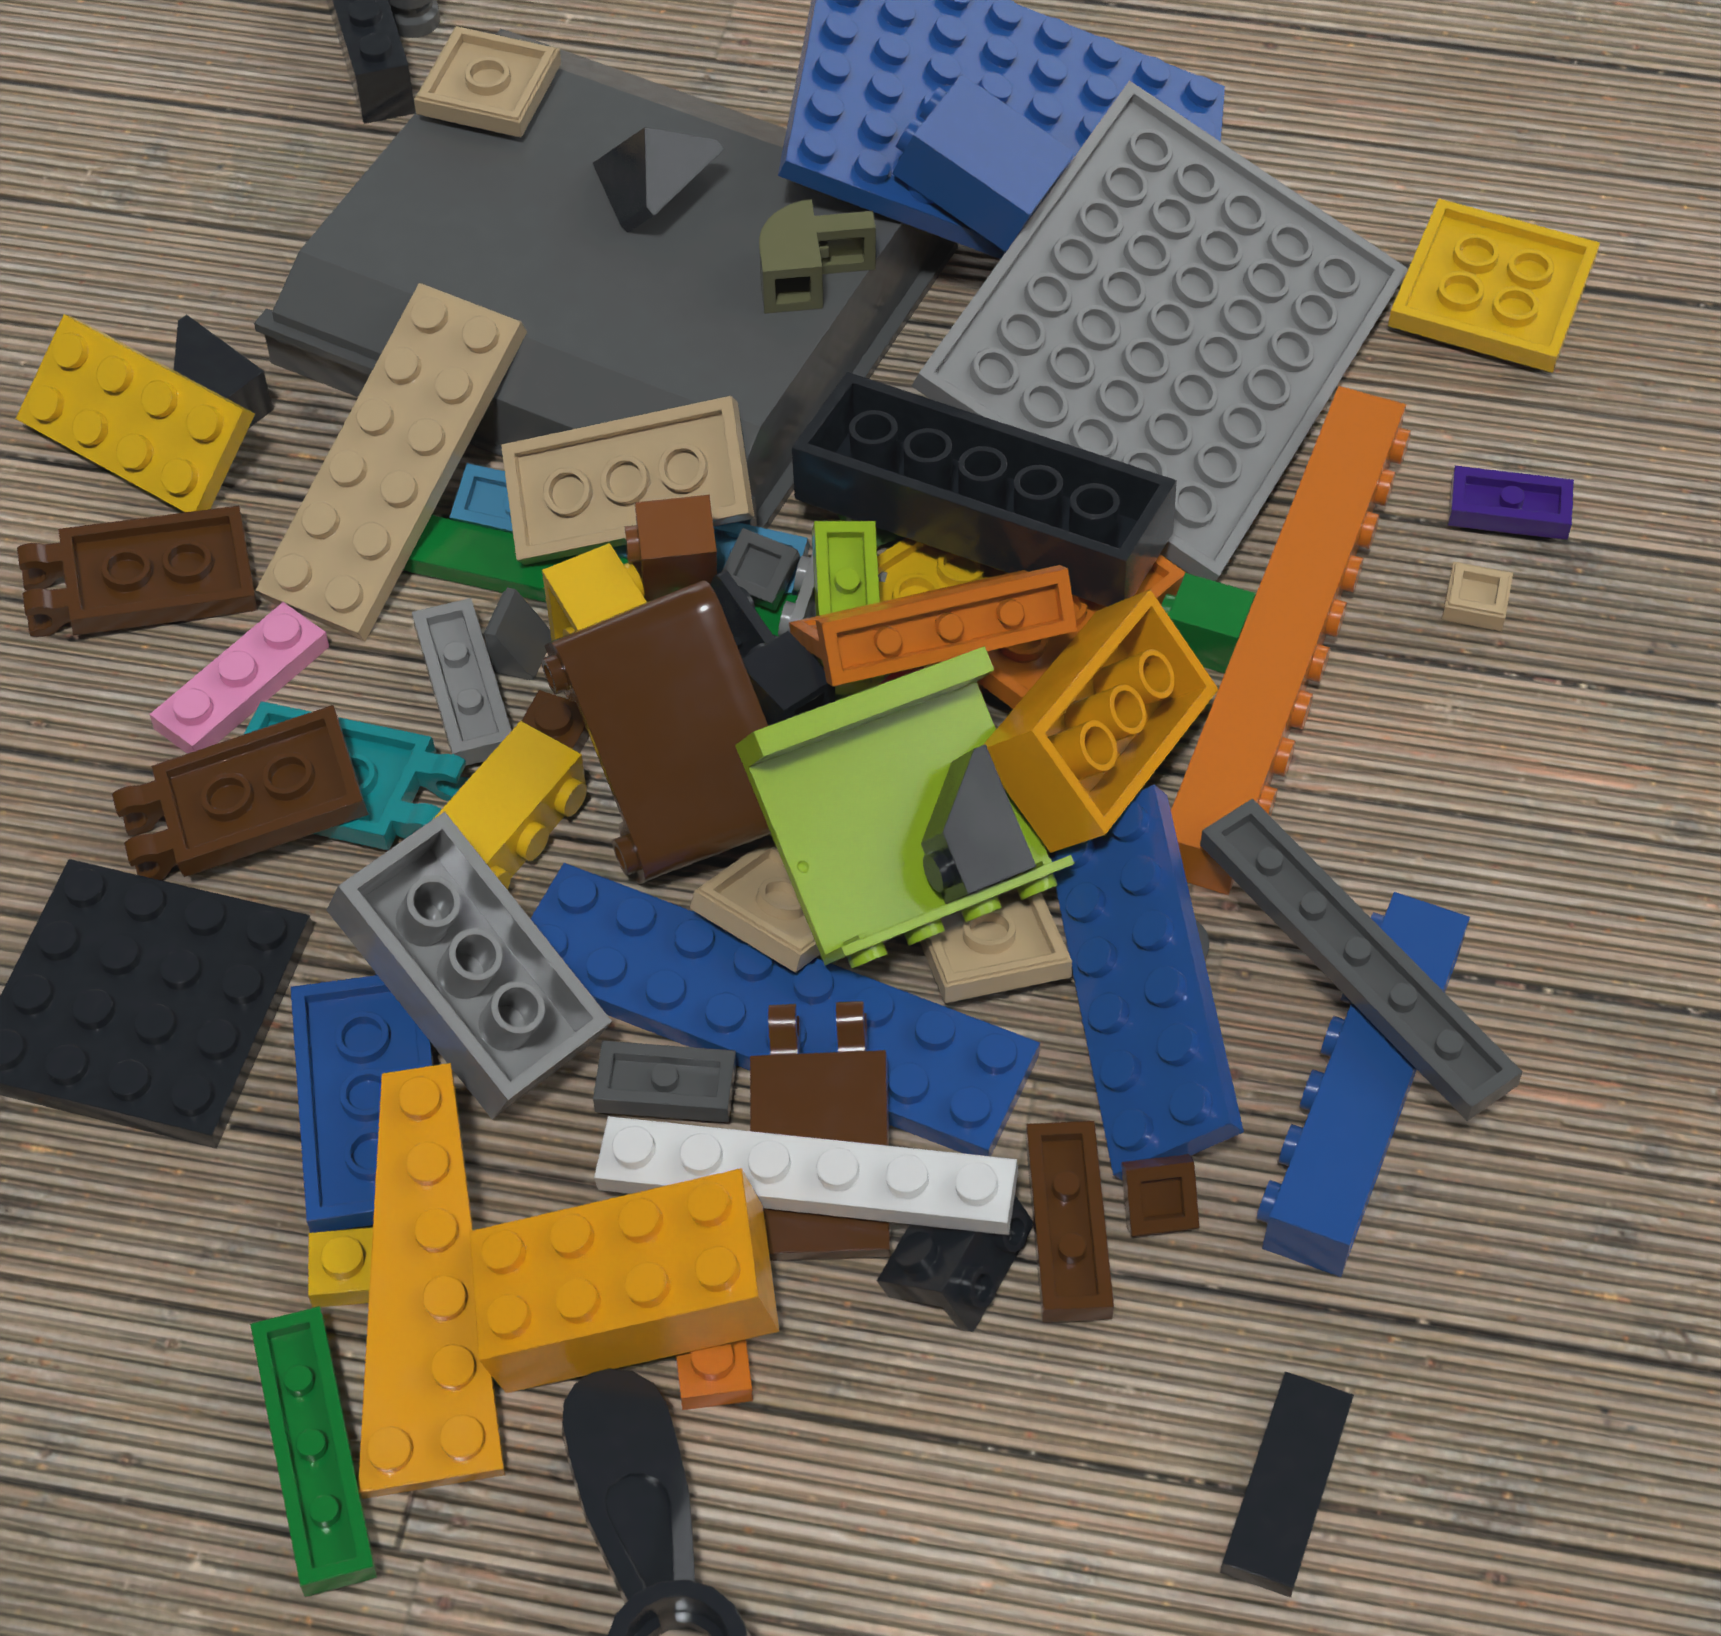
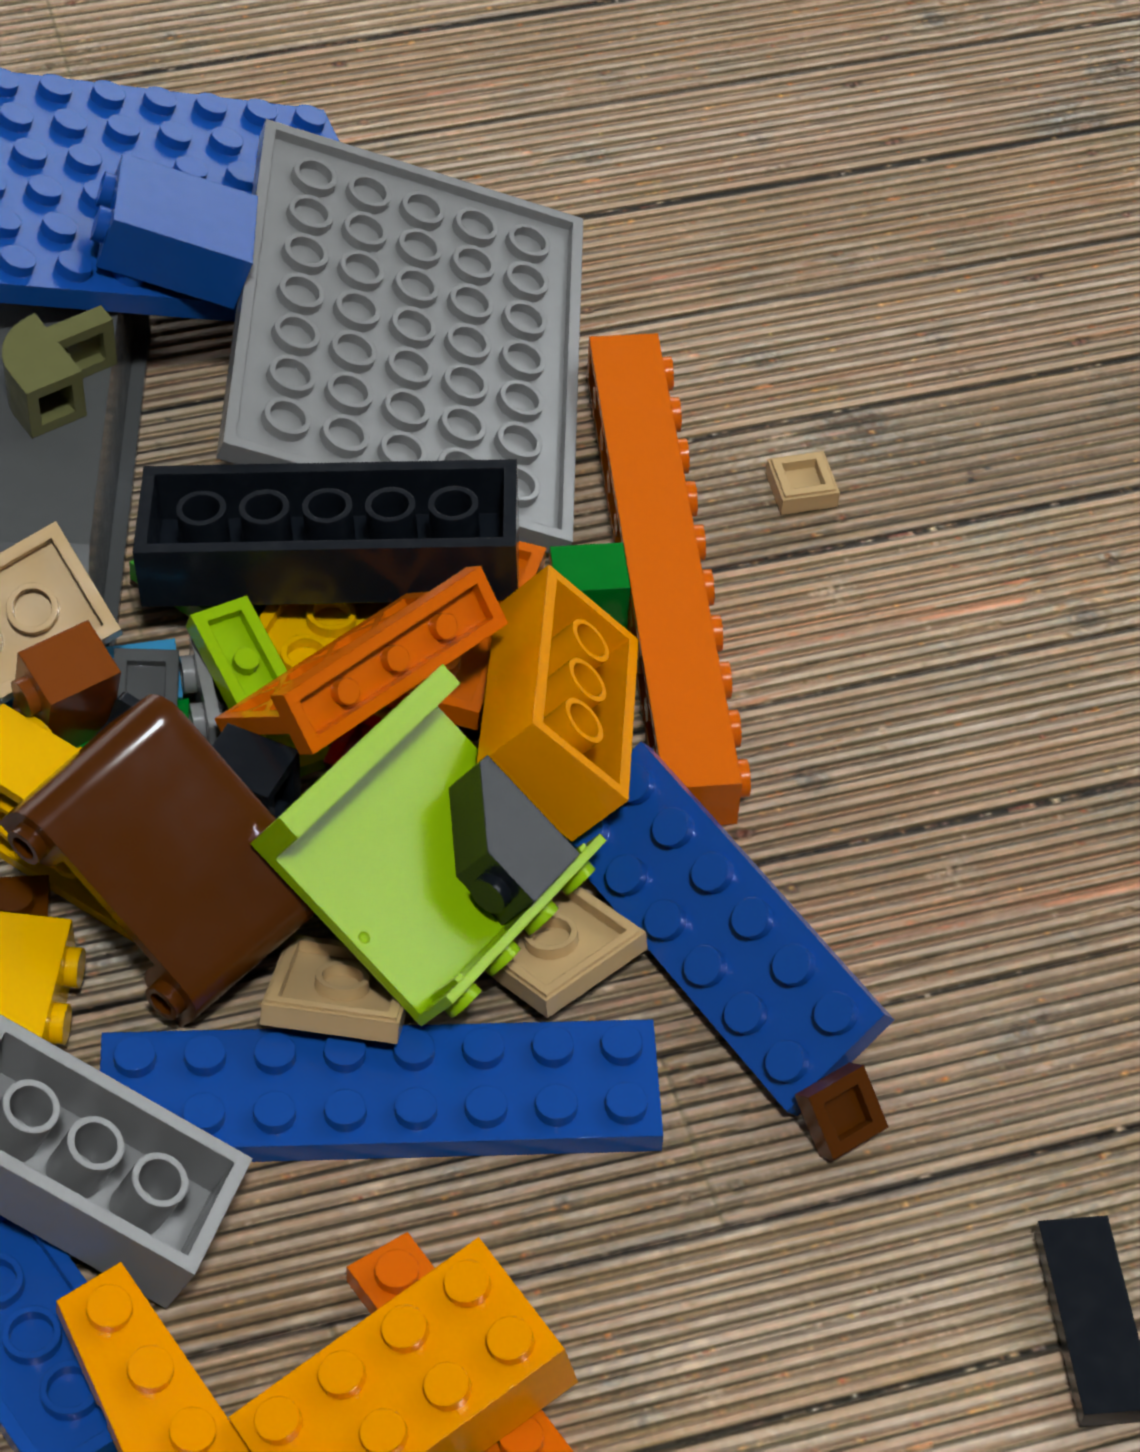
camera: 30 degrees left, 5 degrees down
(665, 1081) = (322, 1199): dark grey plate -> none
(816, 1173) = (523, 1222): white plate -> none
(821, 1098) = (510, 1182): reddish brown tile -> none
(954, 1267) = (685, 1235): black bracket -> none
(1069, 1222) = (773, 1170): reddish brown plate -> none
(1352, 1108) = (960, 942): blue brick -> none
(1361, 960) = (907, 825): dark grey plate -> none
(1494, 285) = (664, 210): yellow plate -> none
(1511, 502) = (787, 391): dark purple plate -> none

